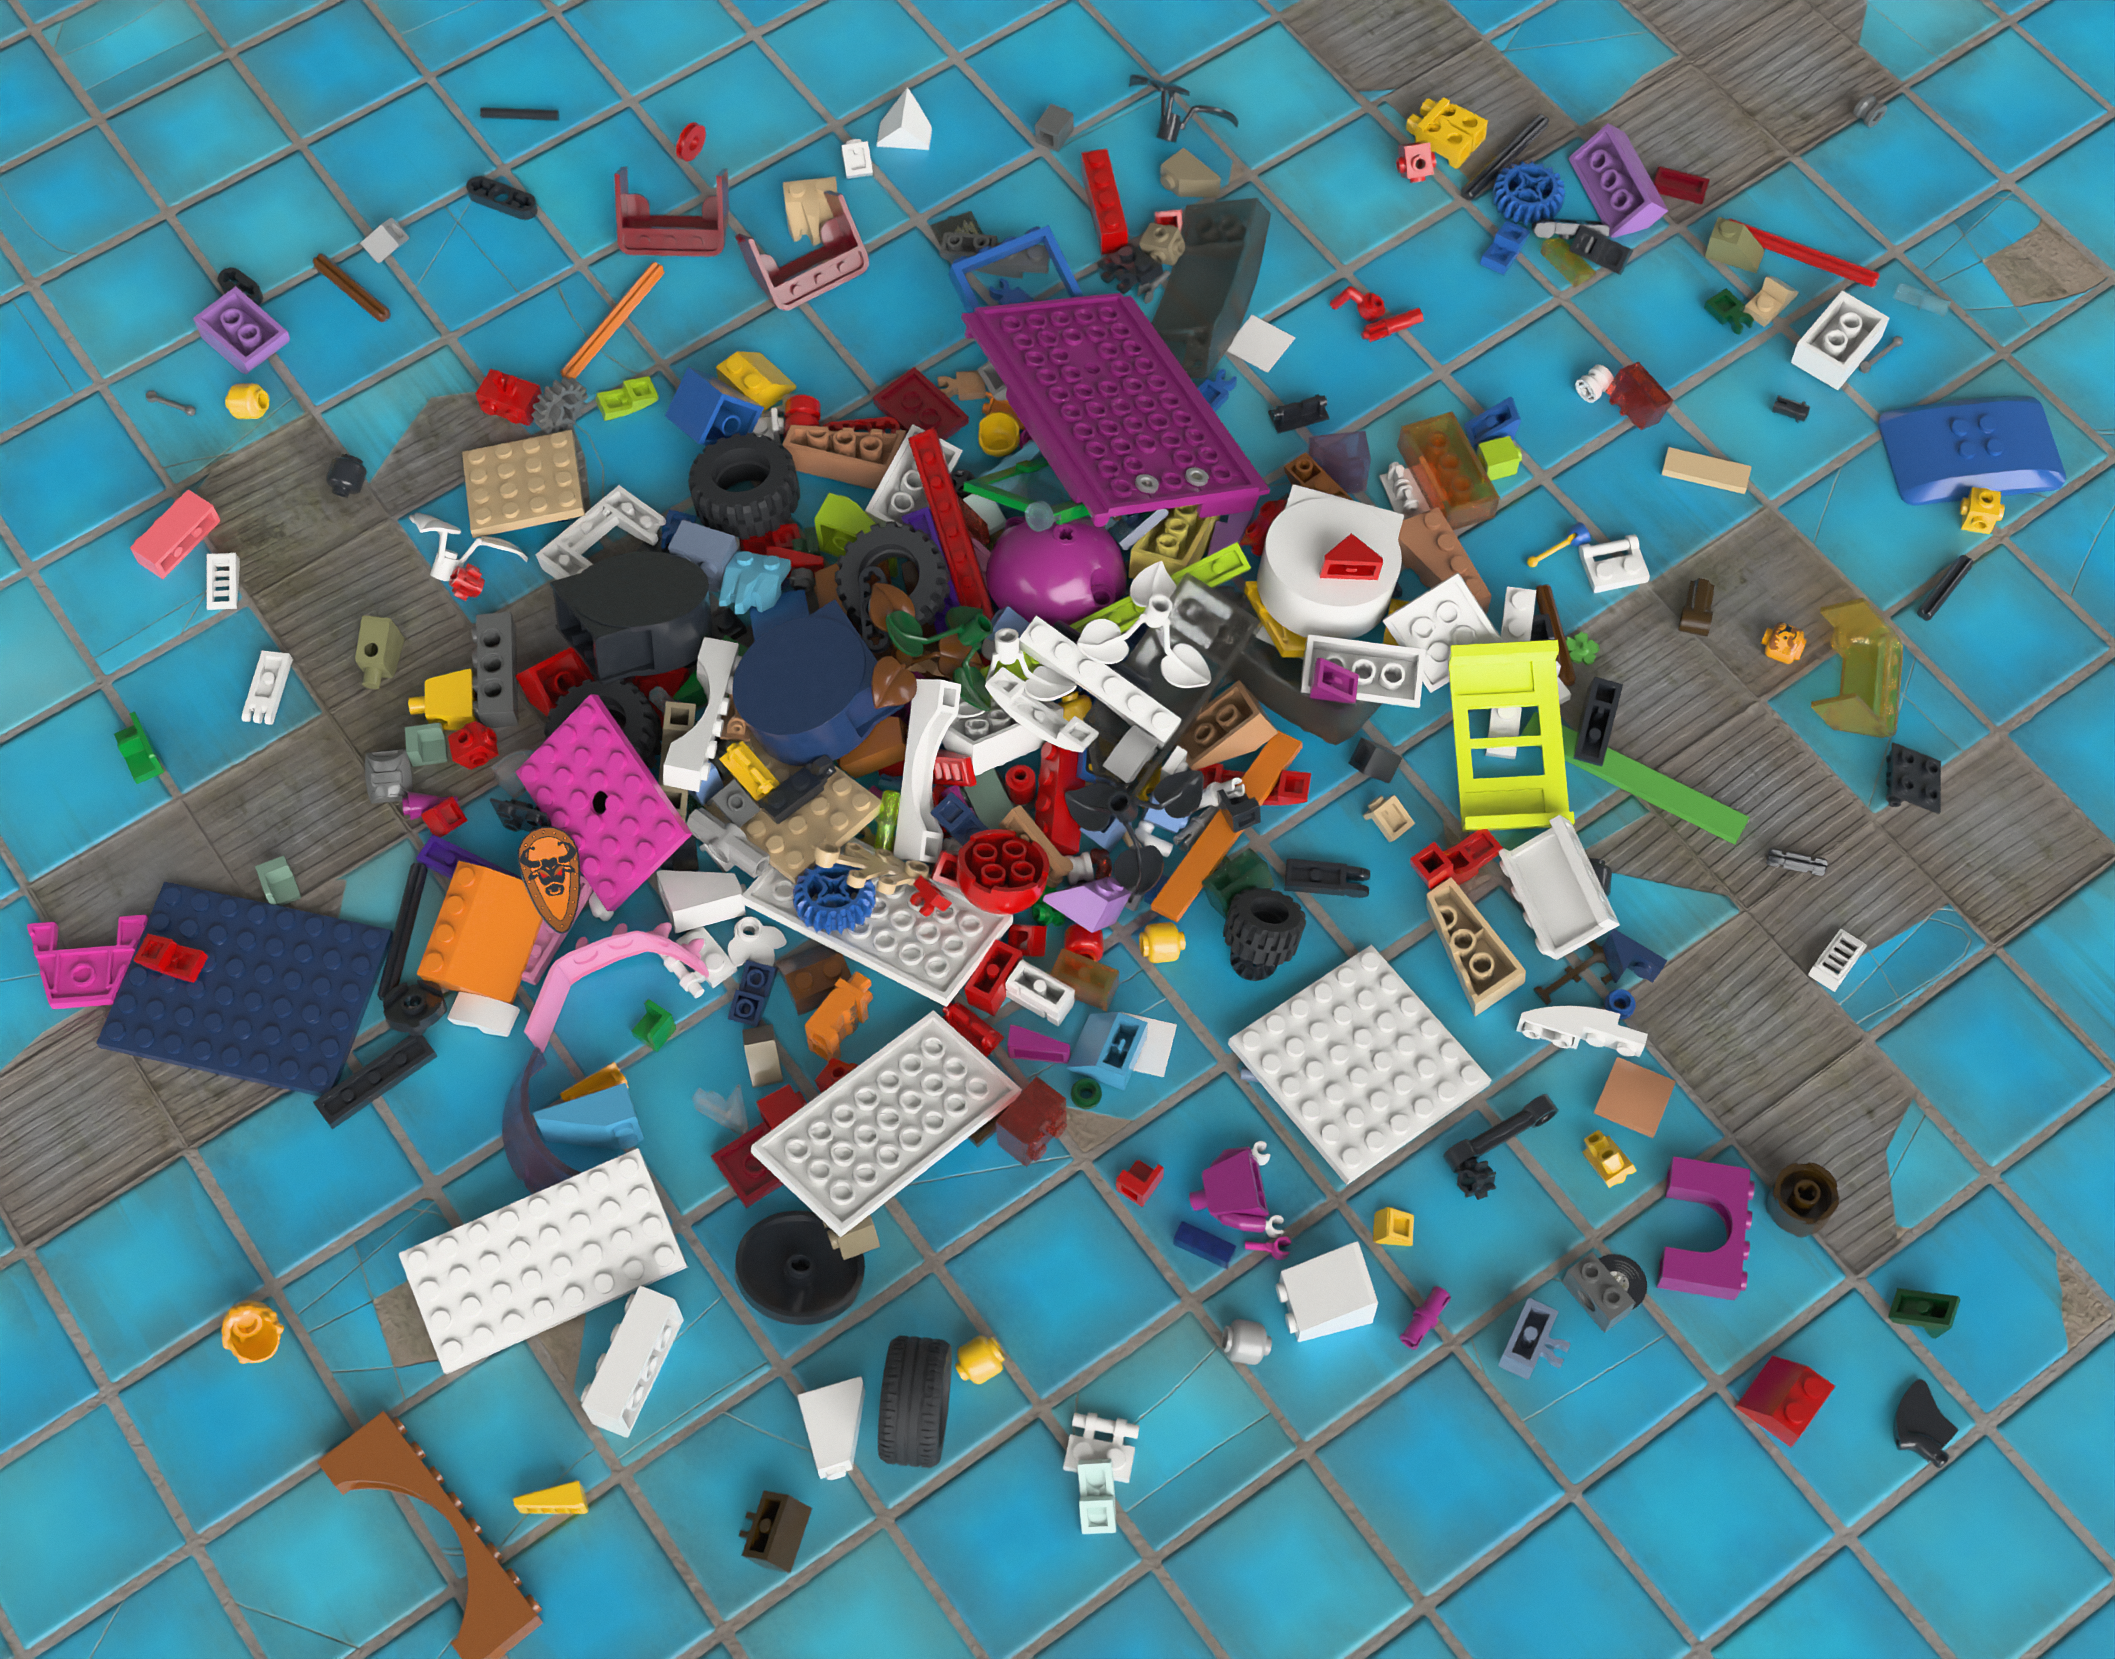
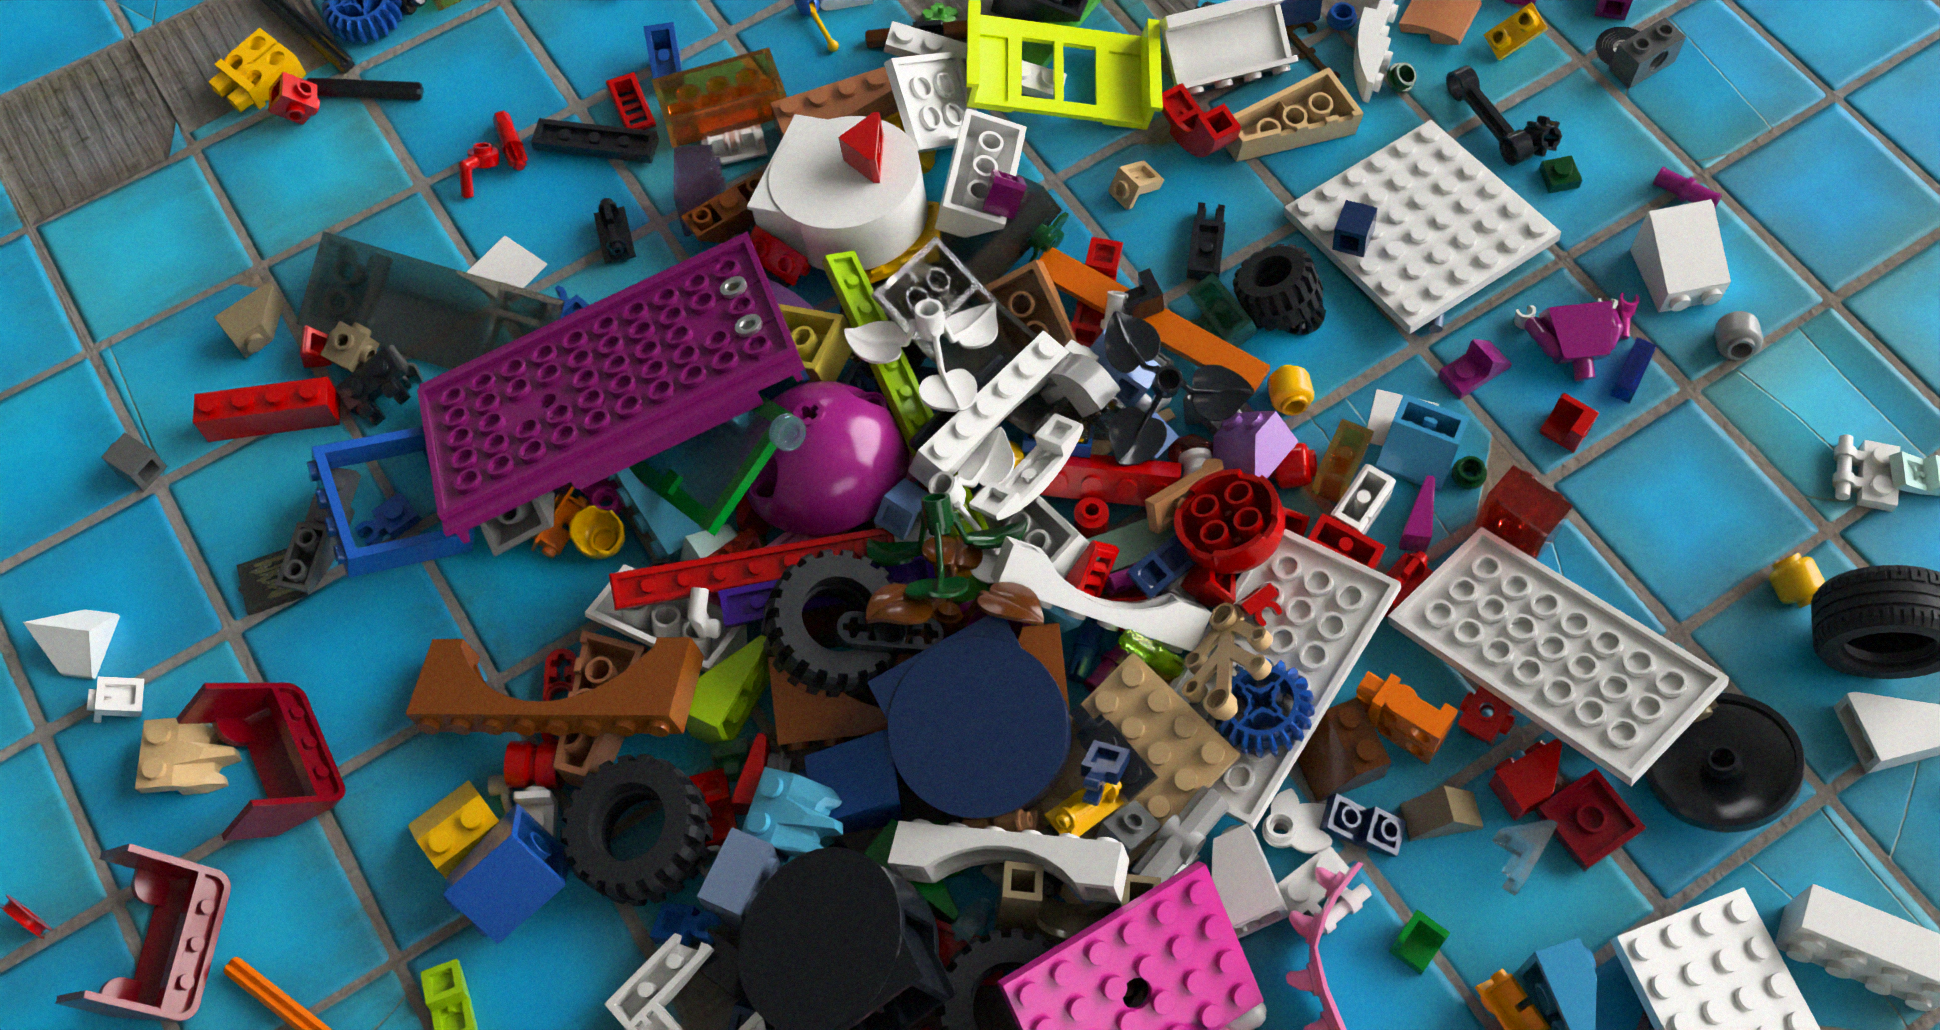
camera: 85 degrees left, 0 degrees up
(773, 771) = (1102, 765): none -> dark blue plate
(834, 465) = (643, 699): none -> dark orange arch
(905, 498) = (699, 617): none -> white arm
(920, 403) = (537, 625): dark red plate -> none
(967, 386) = (507, 574): medium nougat plate -> none
(1169, 122) = (168, 331): black plant -> none
(1201, 1107) = (1474, 368): none -> magenta slope
(1302, 733) = (1047, 237): none -> dark green plate
(1332, 989) = (1354, 228): none -> dark blue brick
(1375, 760) = (1068, 188): black panel -> none
(1393, 1227) = (1592, 213): yellow slope -> none
(1397, 385) = (595, 140): none -> black plate
(1437, 1201) = (1560, 174): none -> dark green plate
(1440, 211) = (368, 88): none -> black axle
(1453, 393) = (624, 84): none -> red slope
(1499, 457) = (703, 50): lime brick -> none
(1505, 248) = (425, 37): blue slope -> none
(1531, 1340) = (1705, 104): sand blue brick -> none
(1538, 1063) = (1401, 77): none -> dark green plate

